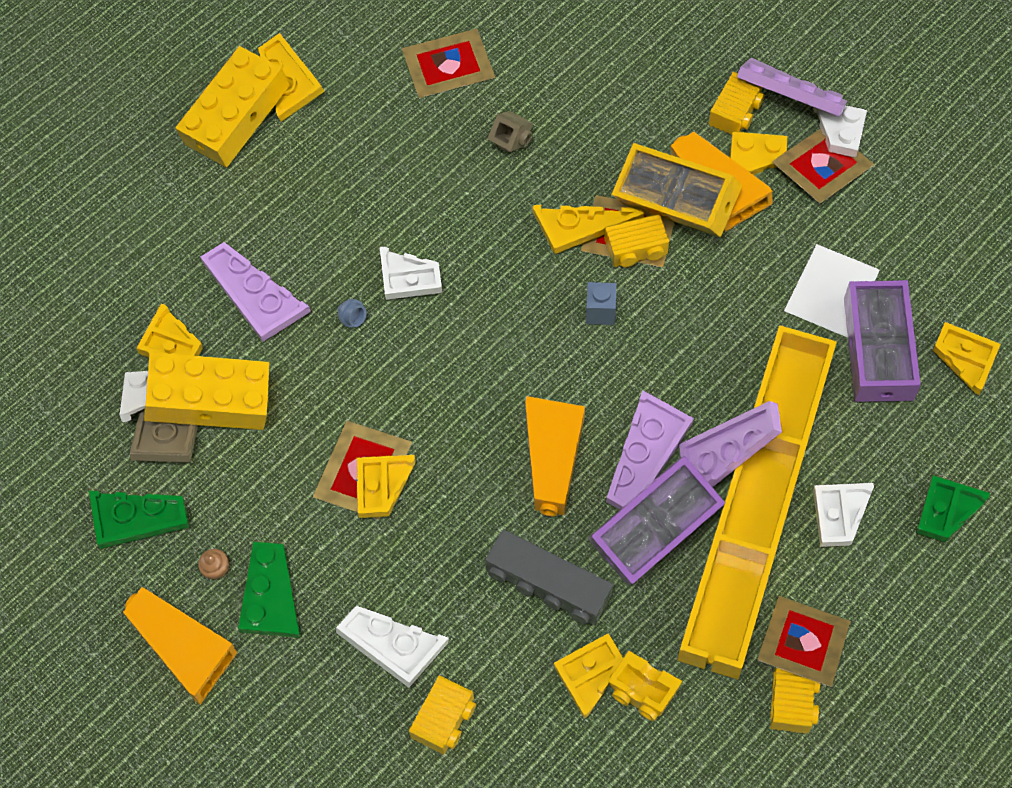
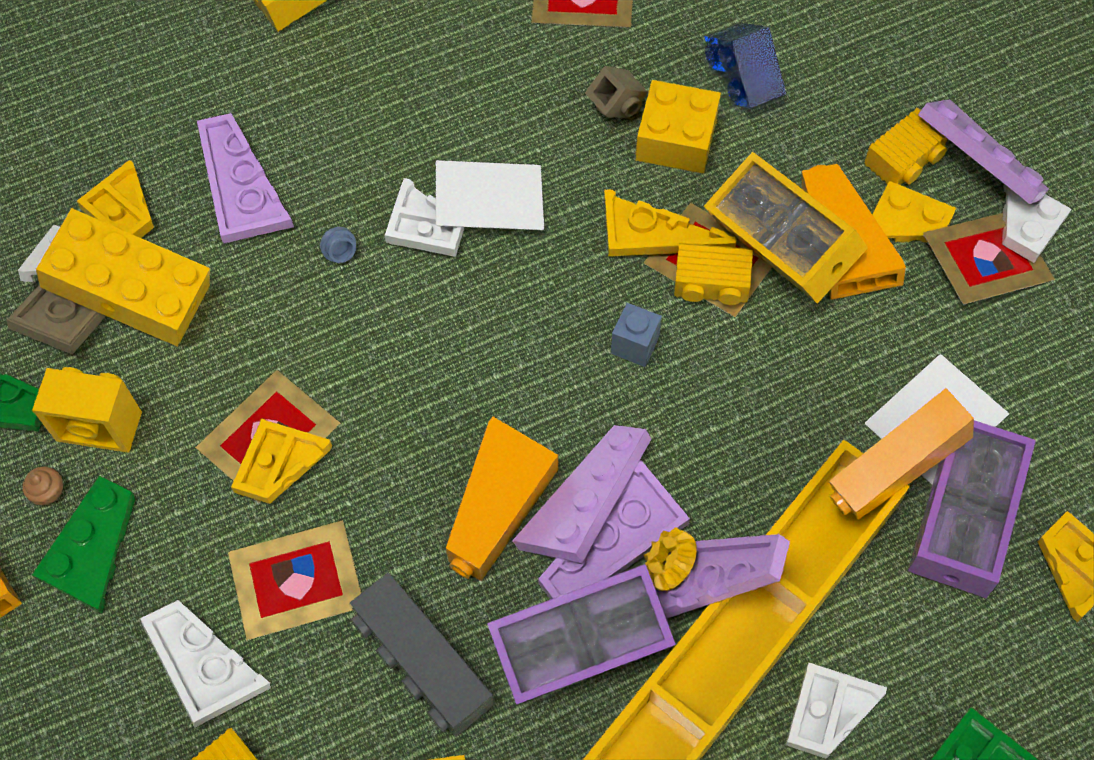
camera: 20 degrees right, 0 degrees up
(226, 495) = (87, 409): none -> yellow brick
(430, 562) = (294, 579): none -> sticker
(447, 238) = (489, 195): none -> white sticker
(565, 141) = (677, 126): none -> yellow brick
(598, 75) = (750, 63): none -> clear blue brick
(615, 431) = (581, 505): none -> lavender wing
(702, 448) = (677, 564): none -> yellow gear
(826, 320) = (903, 455): none -> light orange slope

